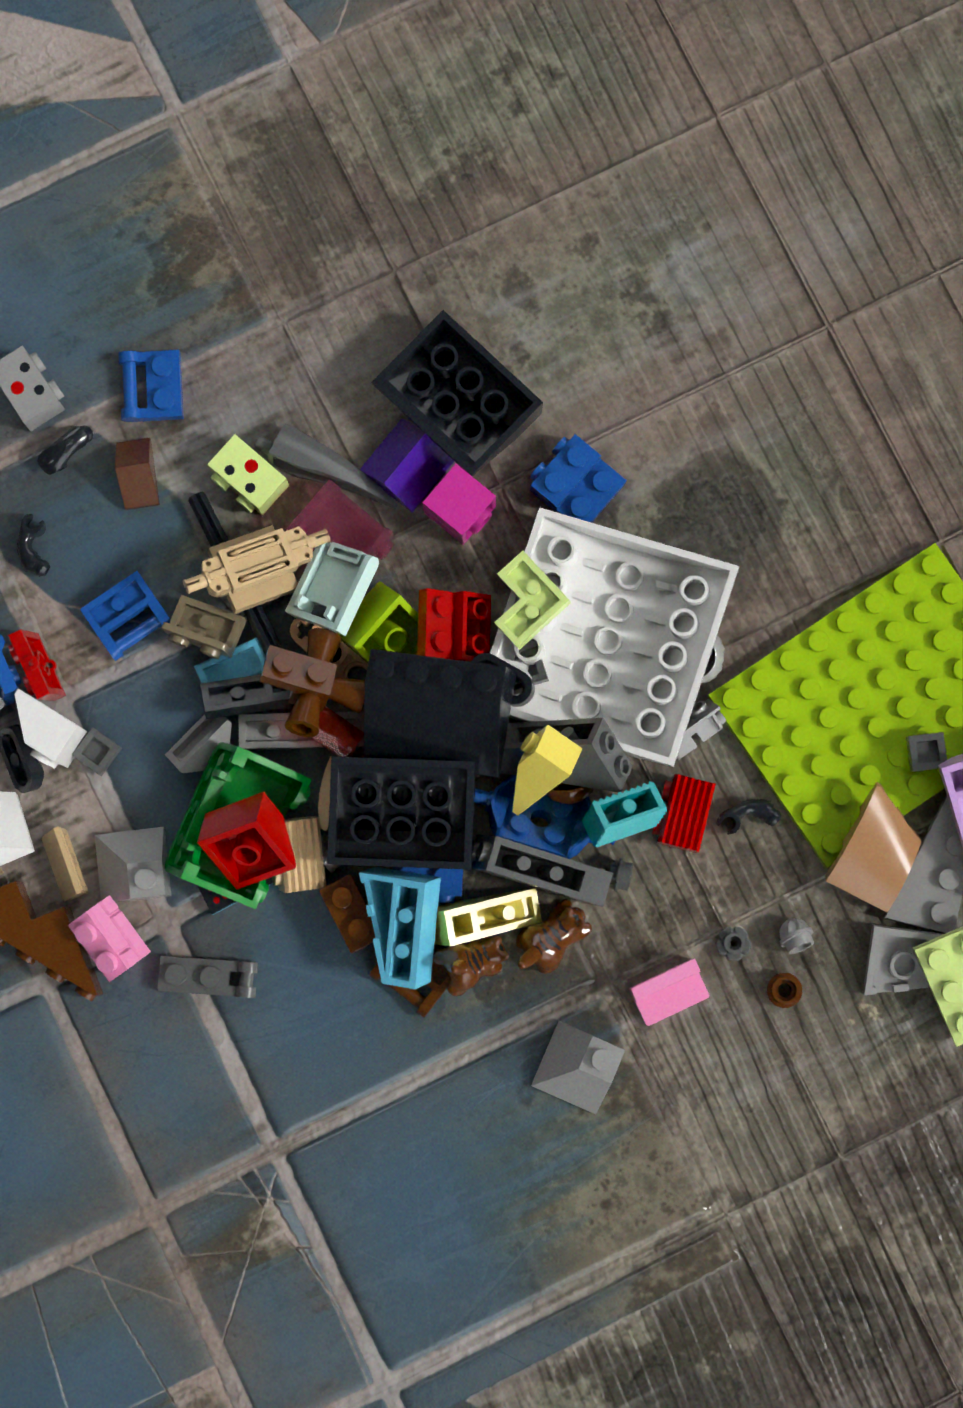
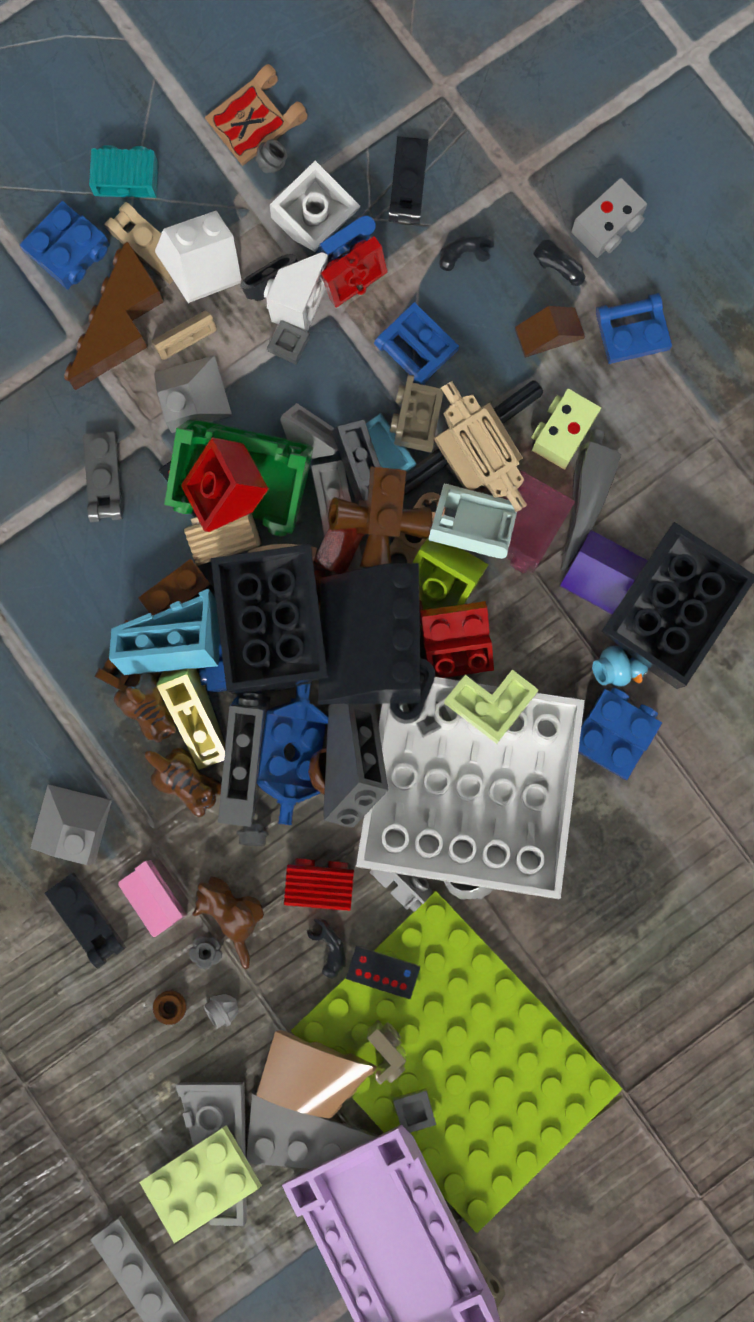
camera: 80 degrees right, 0 degrees up
(109, 938) = (120, 382): bright pink brick -> none
(460, 504) = (574, 626): dark pink head -> none
(510, 469) = (617, 669): none -> medium azure animal
(543, 766) = (334, 741): light yellow slope -> none
(624, 814) = (304, 827): teal brick -> none
(679, 1066) = (84, 919): none -> black plate
(701, 905) = (234, 915): none -> reddish brown animal
(783, 761) = (383, 972): none -> black tile
(877, 763) = (388, 1043): none -> dark tan bracket

